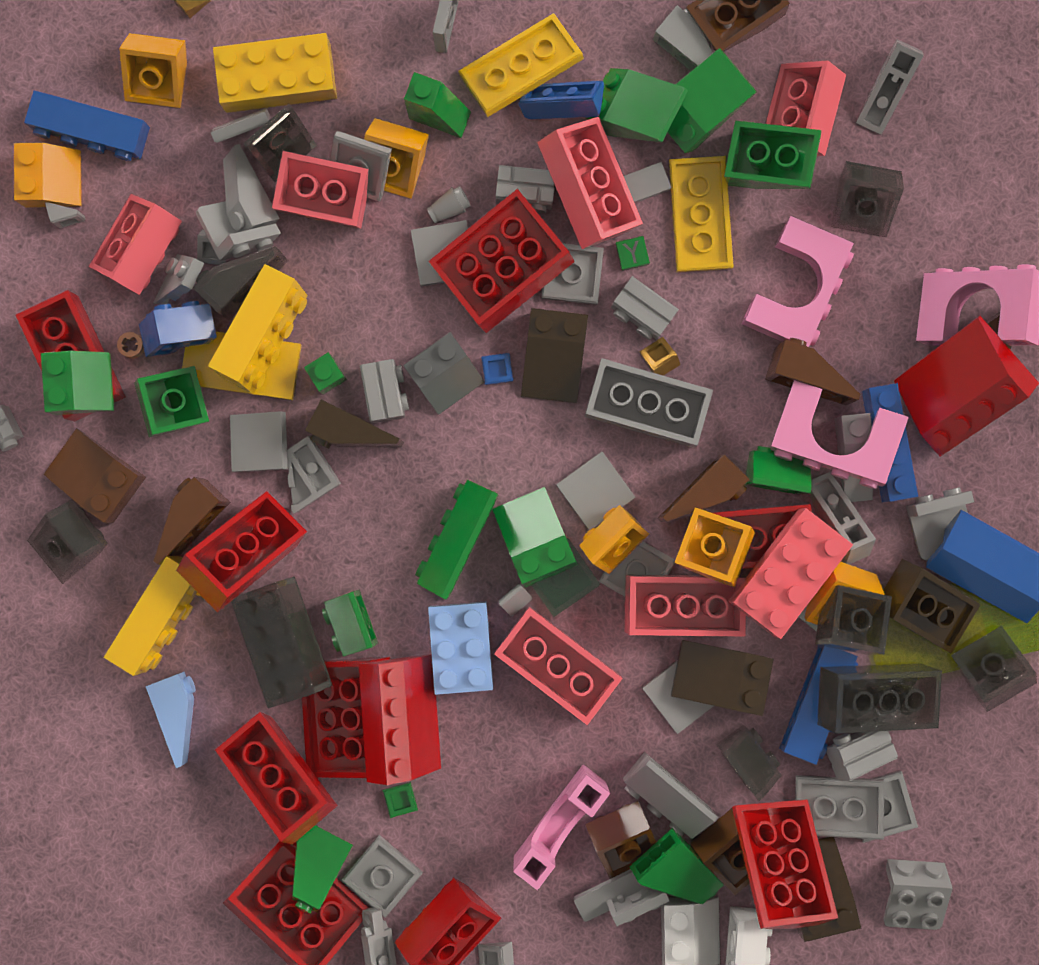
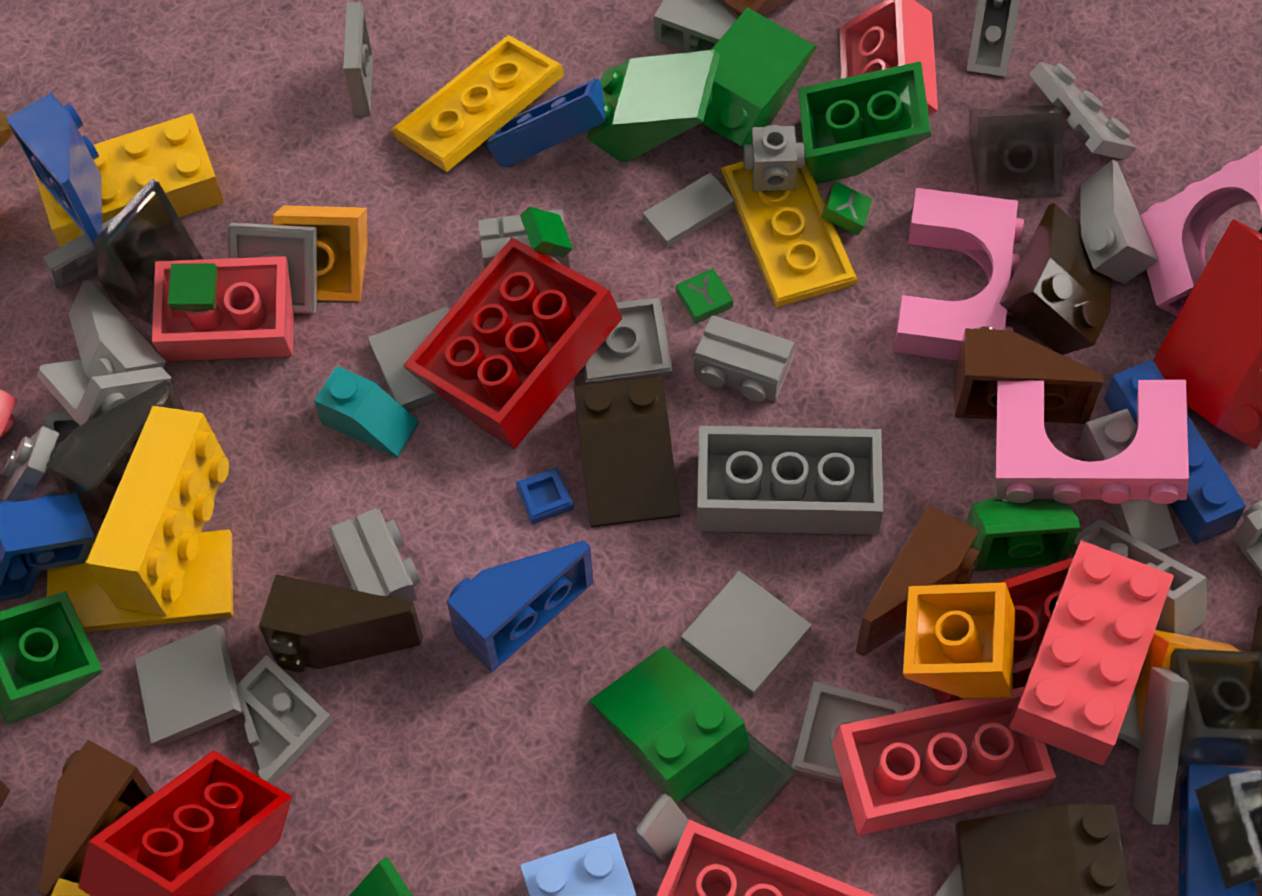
camera: 10 degrees left, 25 degrees down
(234, 68) = (62, 160): none -> blue slope
(304, 178) = (193, 286): none -> green tile
(325, 373) = (276, 553): green brick -> none
(398, 286) = (364, 412): none -> teal slope
(435, 106) = (367, 166): green slope -> none
(444, 373) = (462, 515): dark grey slope -> none
(449, 205) = (418, 292): light grey cone -> none
(456, 445) = (516, 599): none -> blue slope
(457, 538) = (543, 751): green slope -> none
(540, 192) = (546, 232): none -> green tile
(589, 182) = (615, 208): coral brick -> none
(613, 539) = (797, 686): light orange slope -> none
(660, 357) = (789, 413): pearl gold slope -> none
(700, 177) = (773, 157): none -> light grey brick
(742, 213) = (846, 208): none -> green tile
(811, 632) = (1160, 745): none -> light grey tile
(862, 309) = (1057, 288): none -> dark brown slope
(909, 273) = (1113, 226): none -> light grey slope
(923, 190) = (1104, 135): none -> light grey wing

